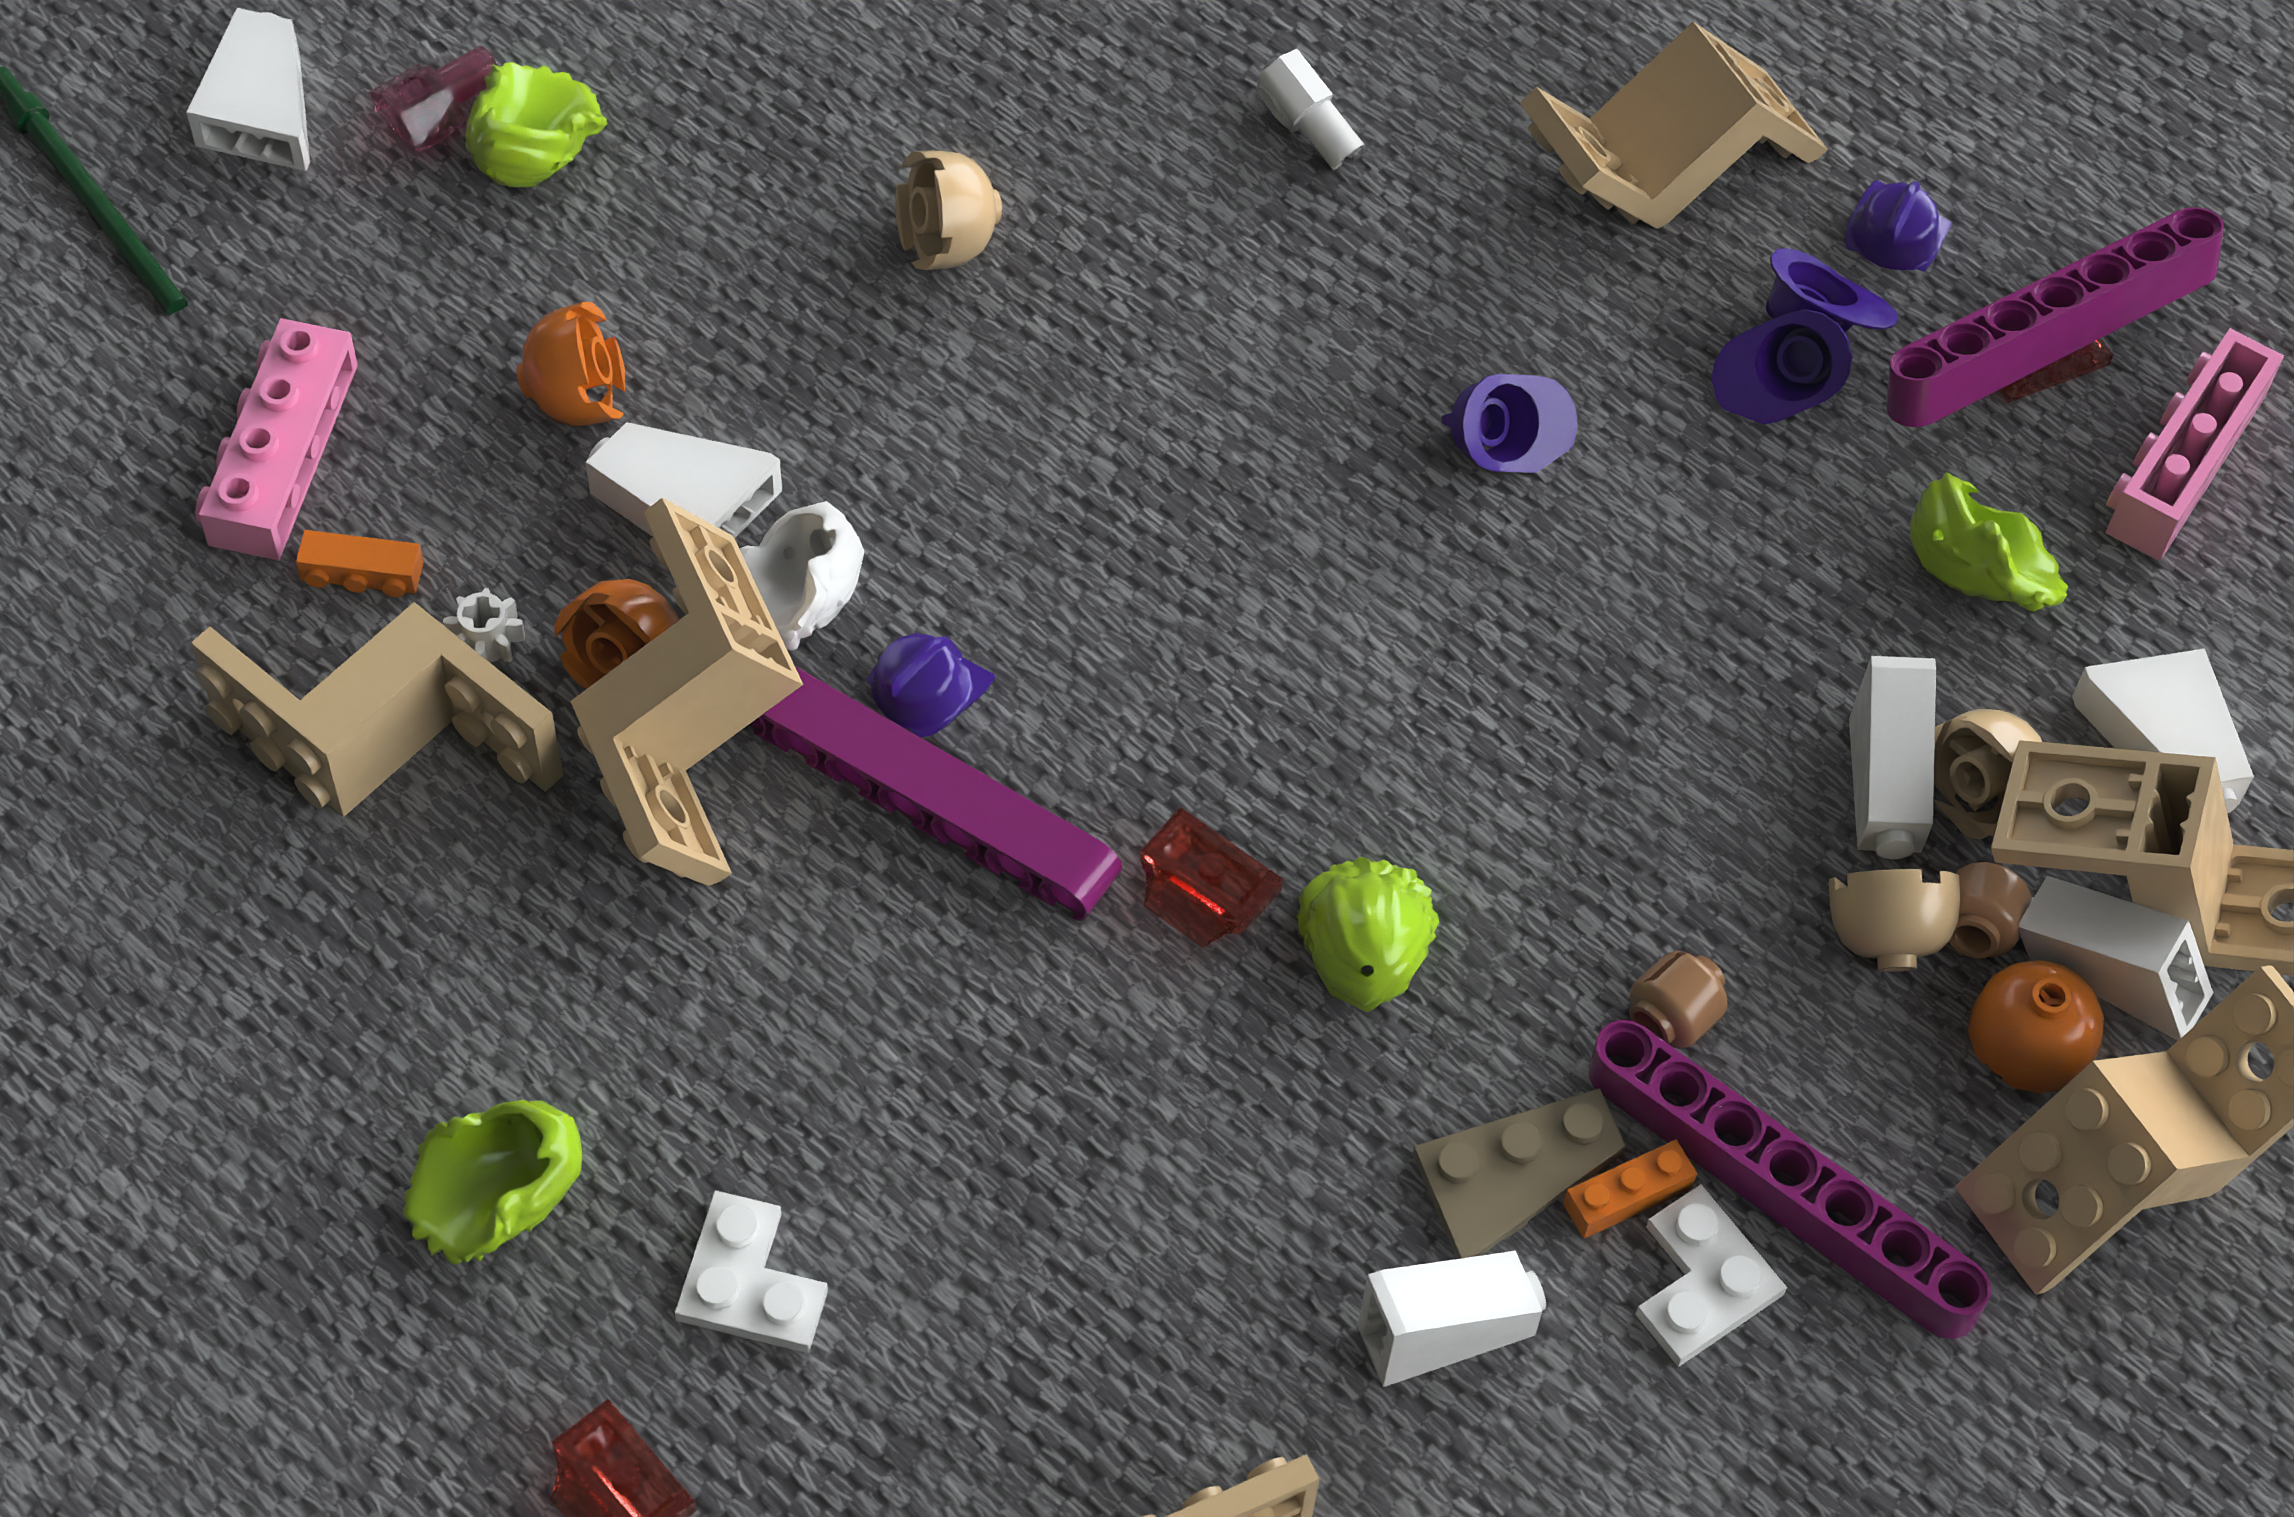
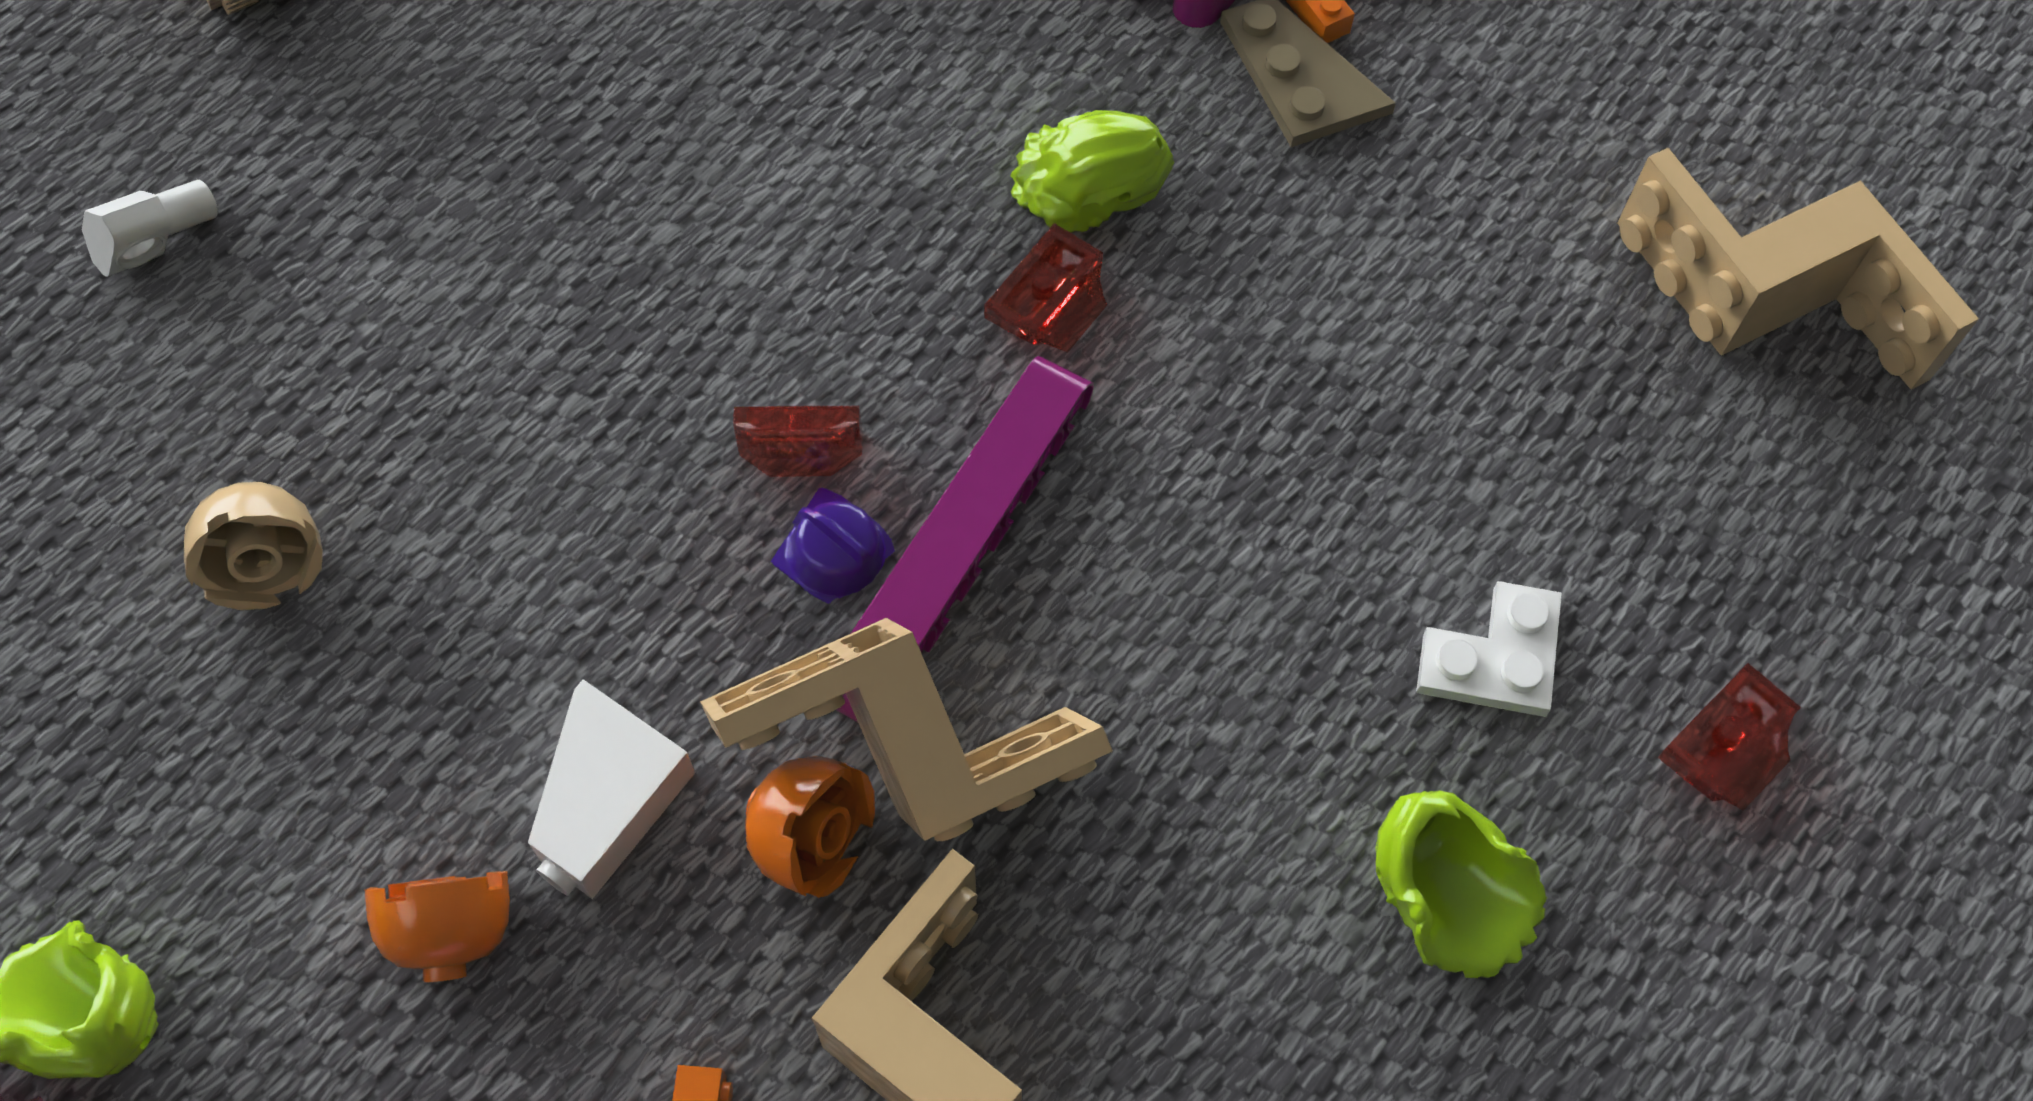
camera: 90 degrees left, 5 degrees up
(498, 617) = (802, 990): white gear -> none
(813, 574) = (723, 638): white piece -> none
(1035, 643) = (798, 438): none -> clear red slope
(1446, 1312) = (1460, 104): white slope -> none
(1520, 415) = (545, 65): dark purple piece -> none

